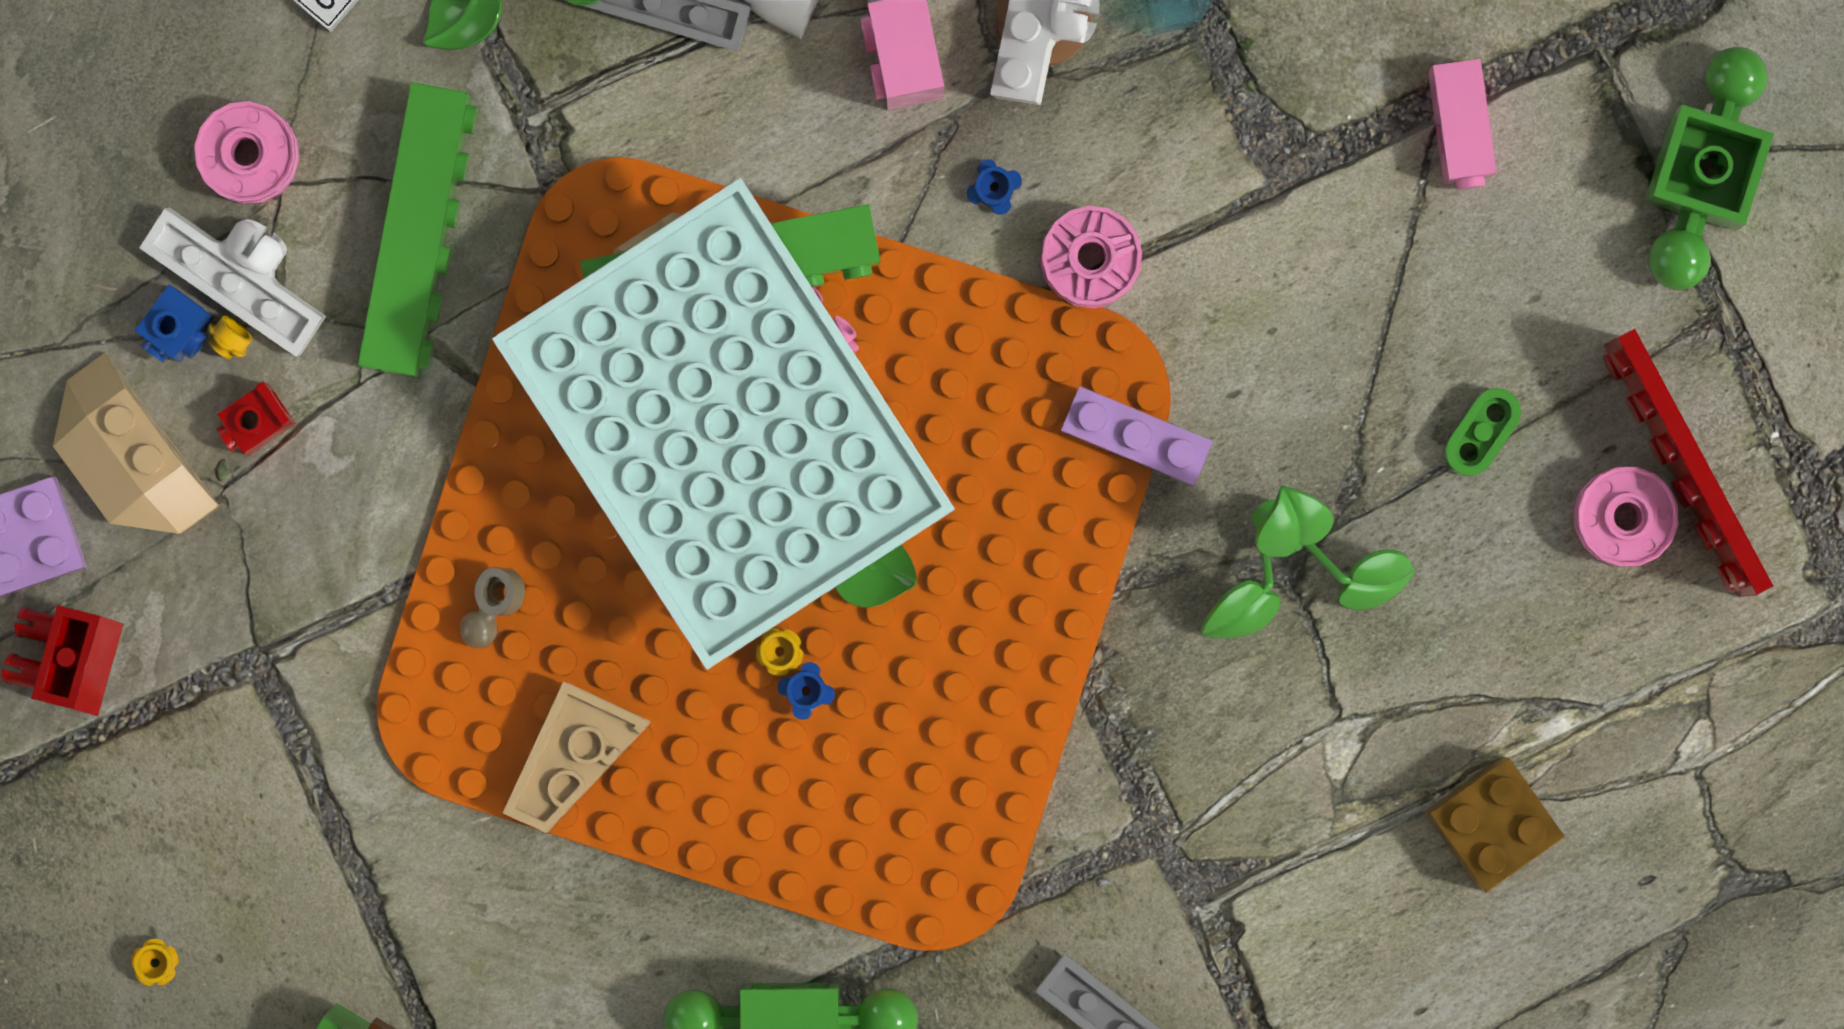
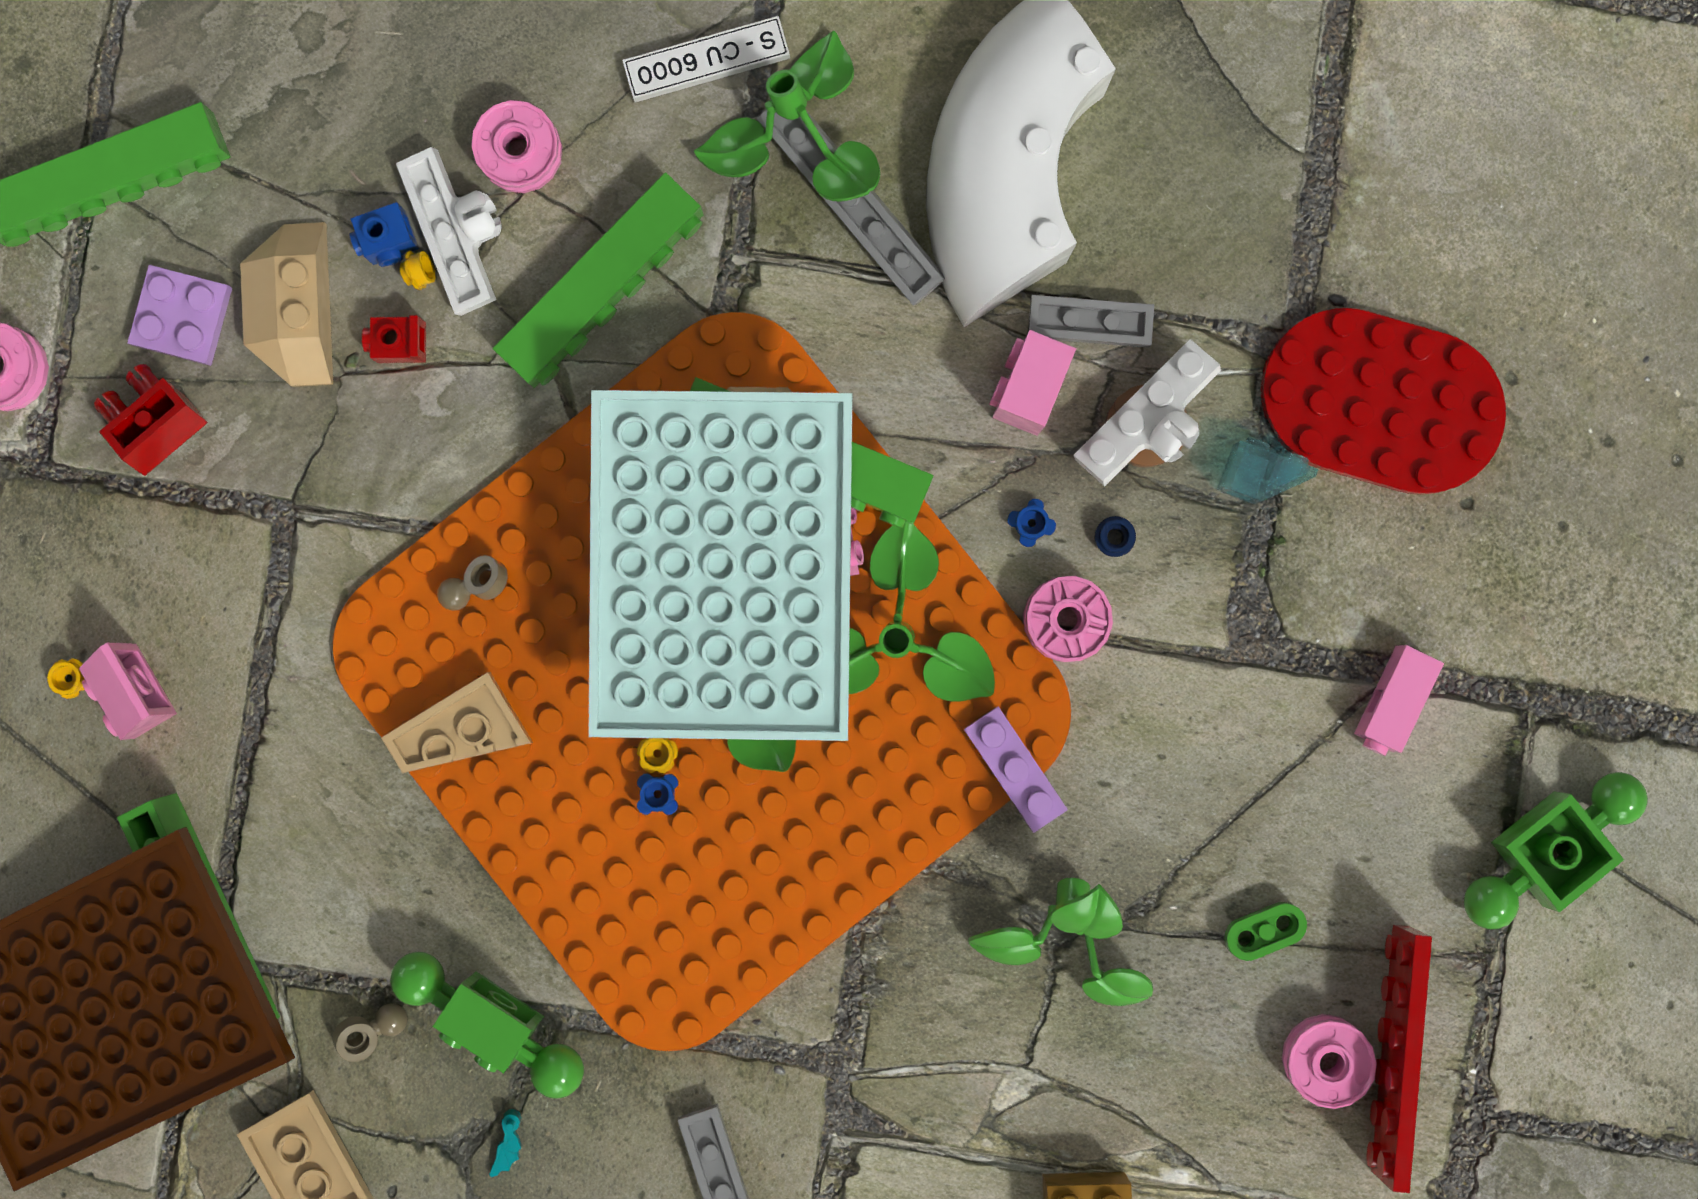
camera: 35 degrees right, 0 degrees up
(221, 935) = (125, 690): none -> bright pink slope
(1015, 372) = (958, 665): none -> bright green plant
(1084, 131) = (1124, 527): none -> dark blue plate

